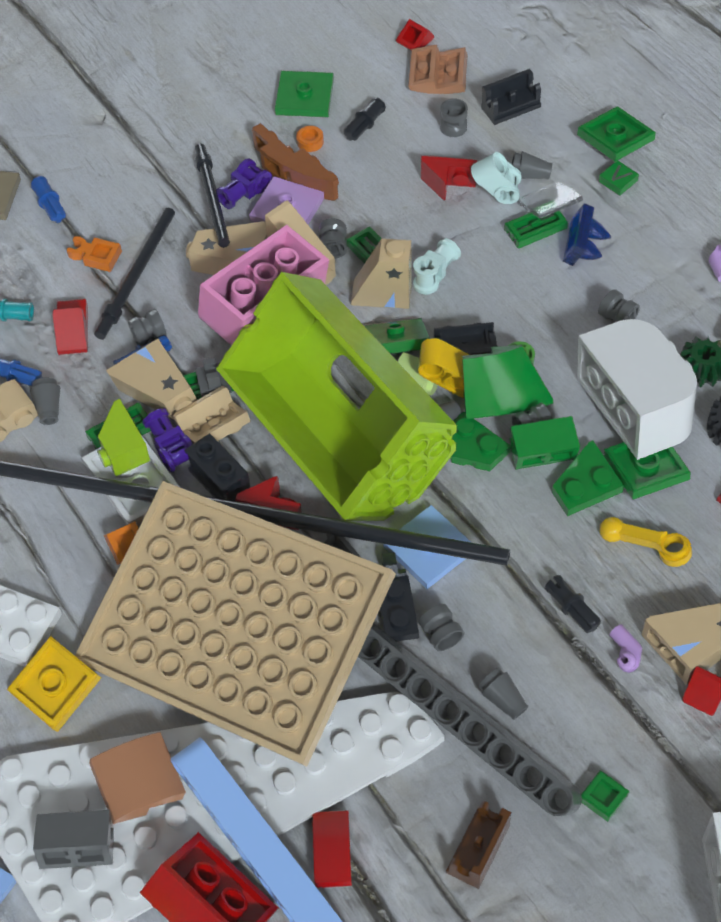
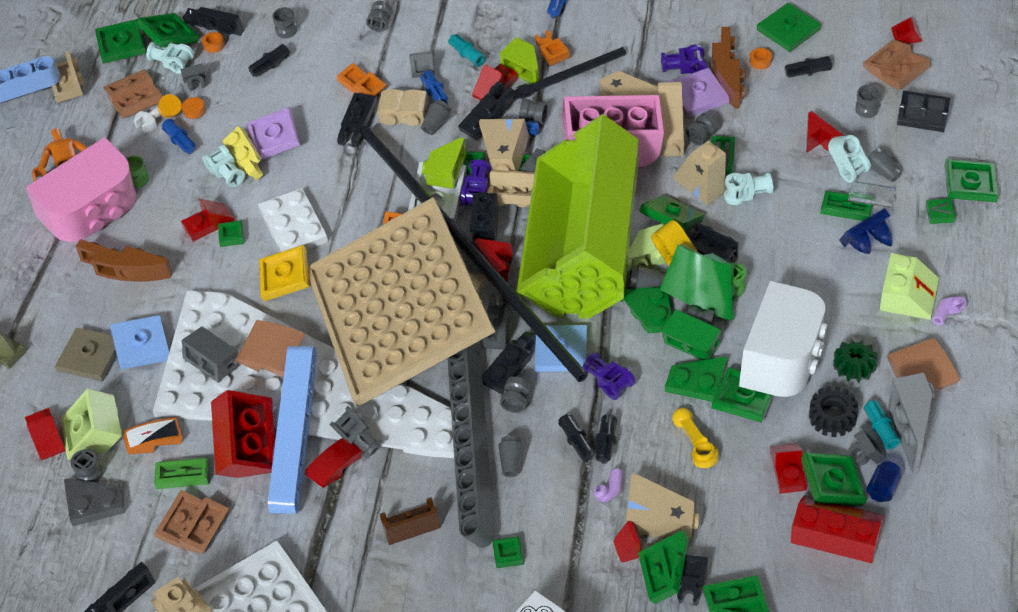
camera: 45 degrees right, 5 degrees down
(81, 281) = (521, 57): none -> lime slope
(96, 359) = (487, 108): none -> black hinge
(205, 165) = (672, 34): black bar -> none
(327, 795) = (352, 428): none -> dark grey connector
(511, 537) = (610, 377): none -> dark purple connector
(542, 624) = (576, 437): none -> black axle
(618, 308) = (836, 291): dark grey wheel -> none
(670, 265) = (909, 287): none -> yellowish green slope

